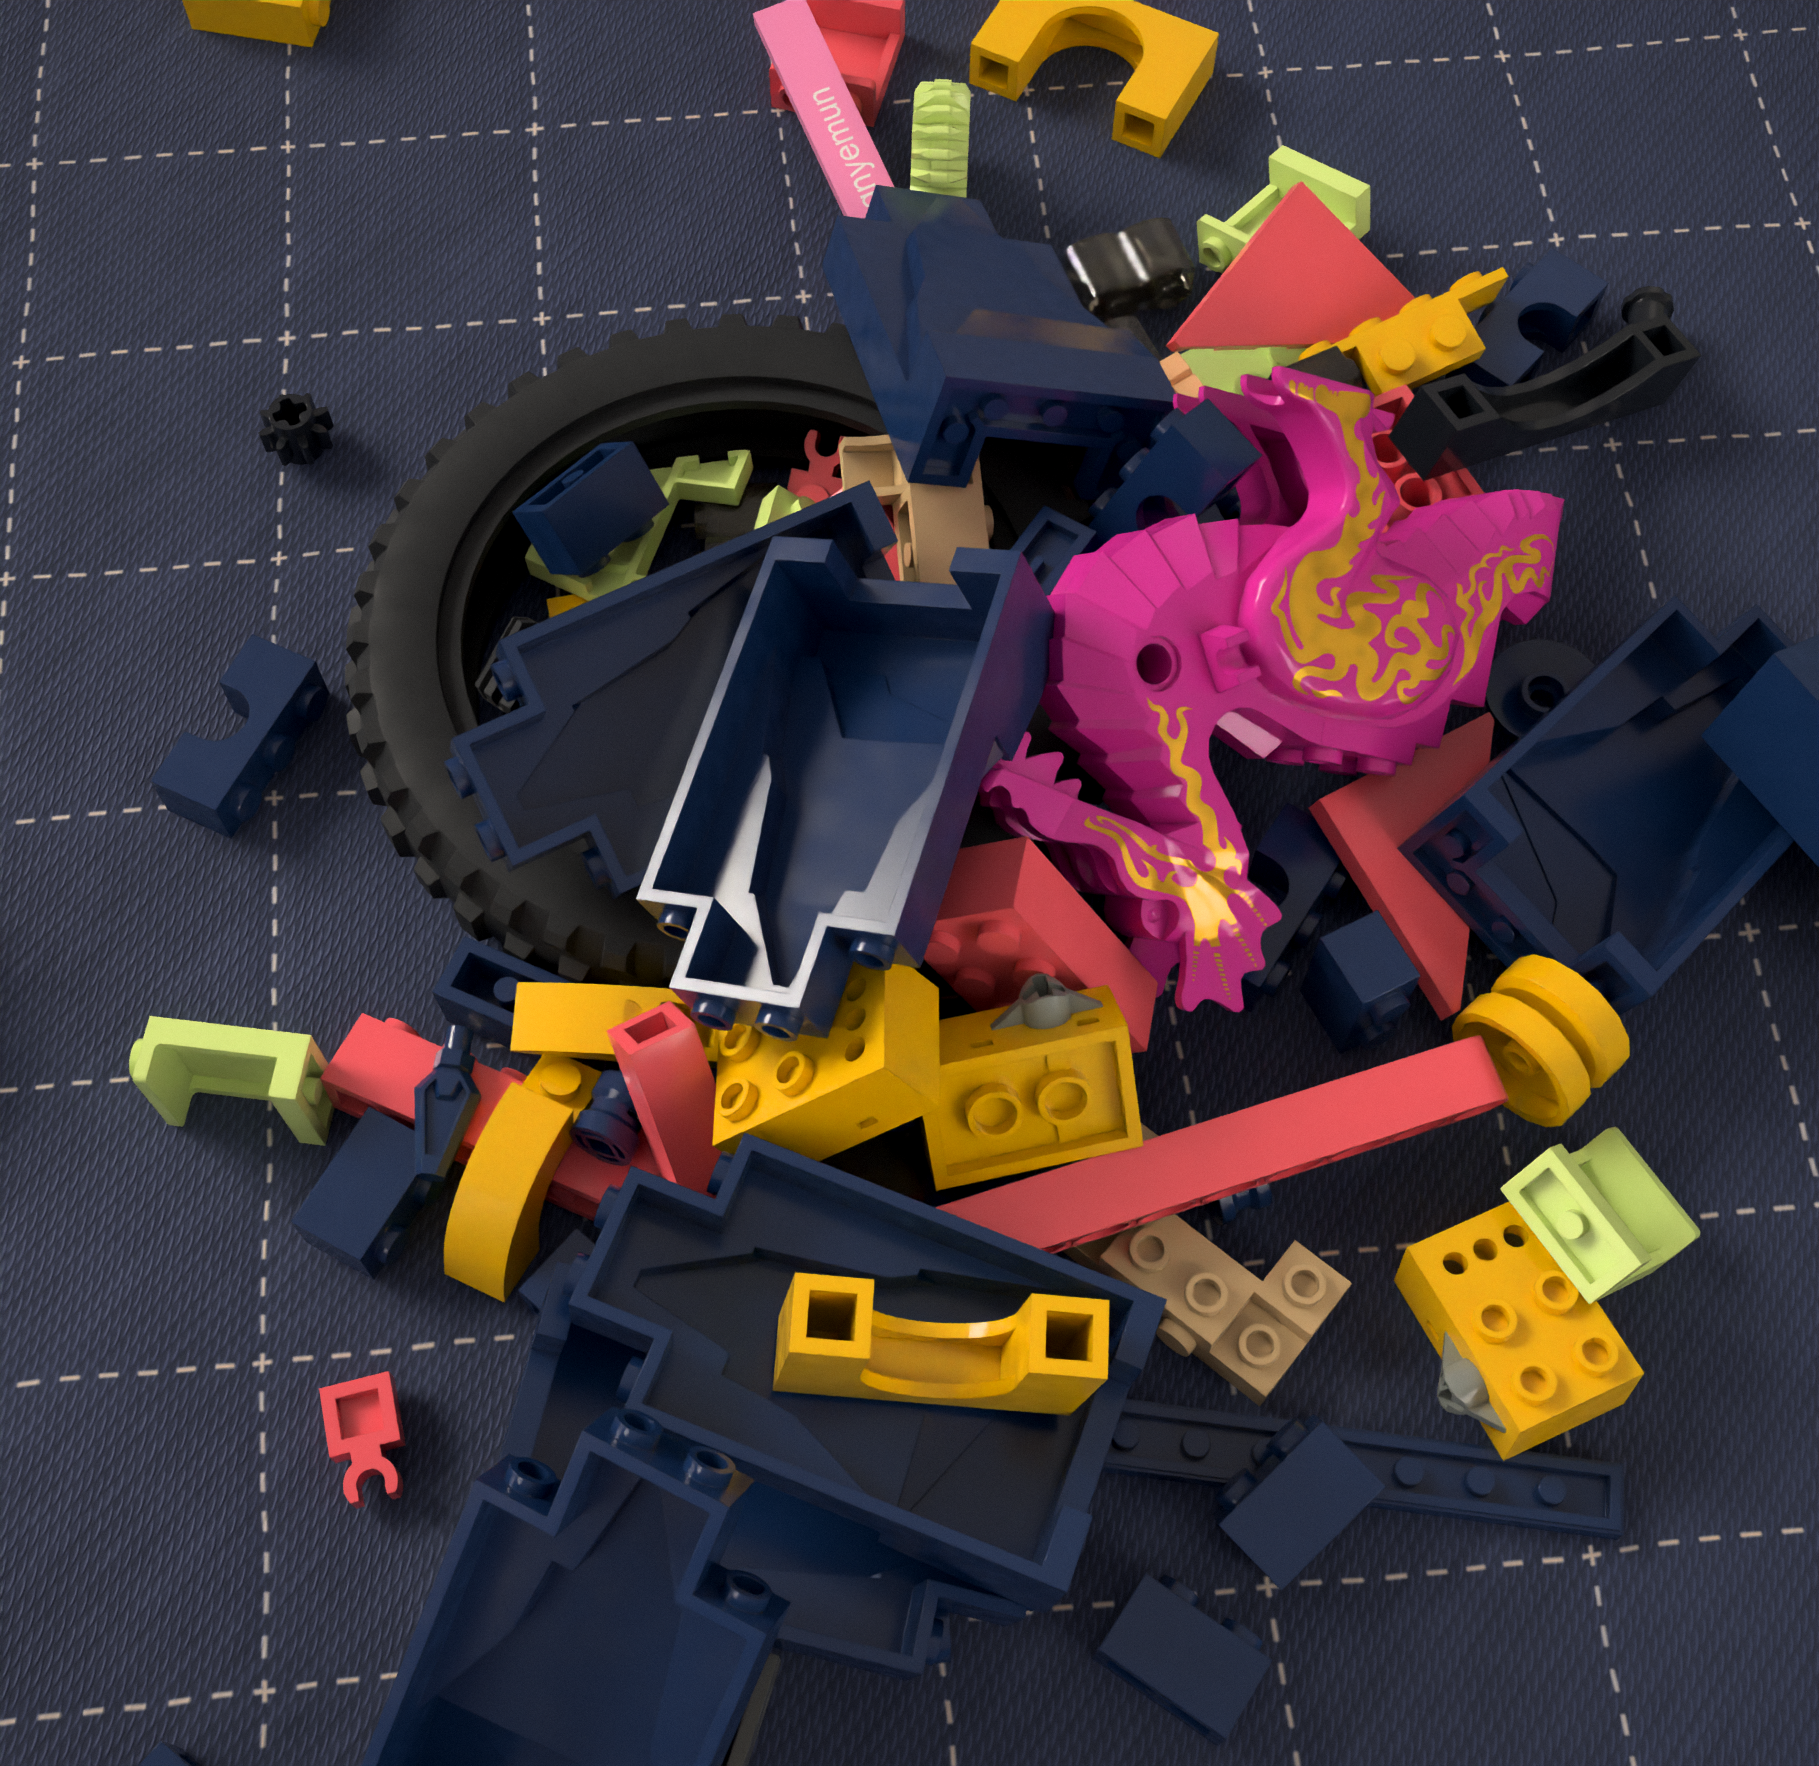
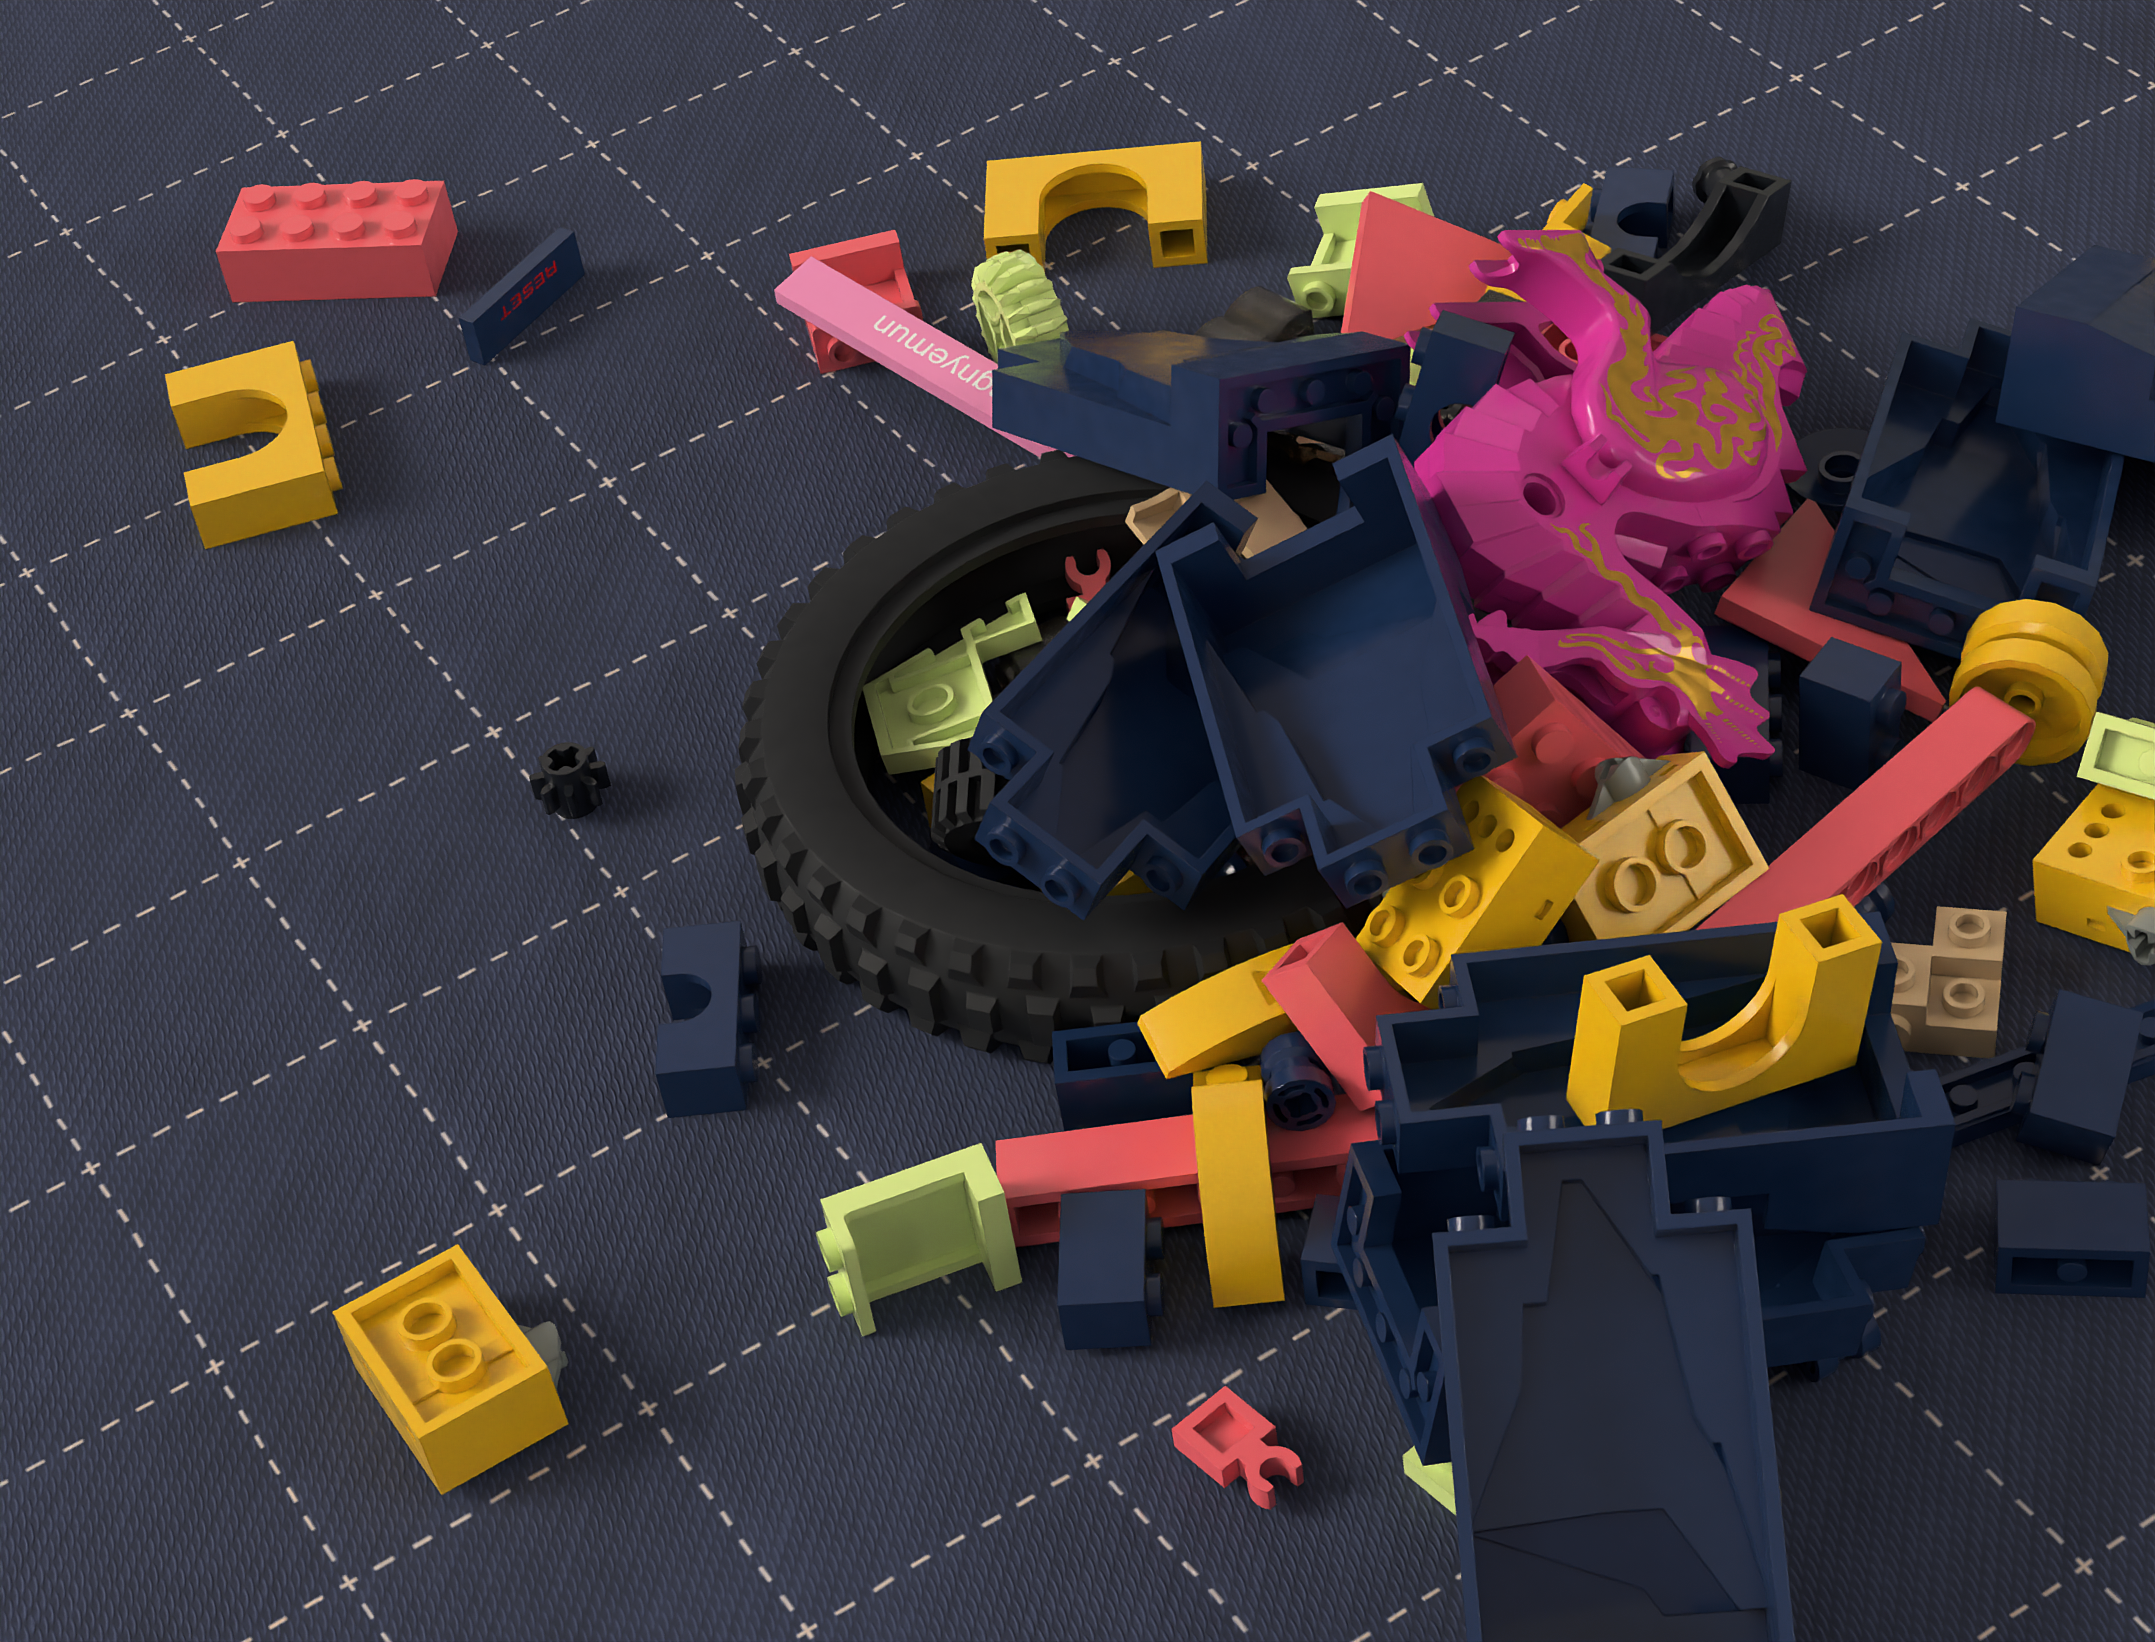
camera: 20 degrees left, 20 degrees down
(445, 1106) = (1132, 1155): dark blue piece -> none
(592, 509) = (931, 673): dark blue brick -> none

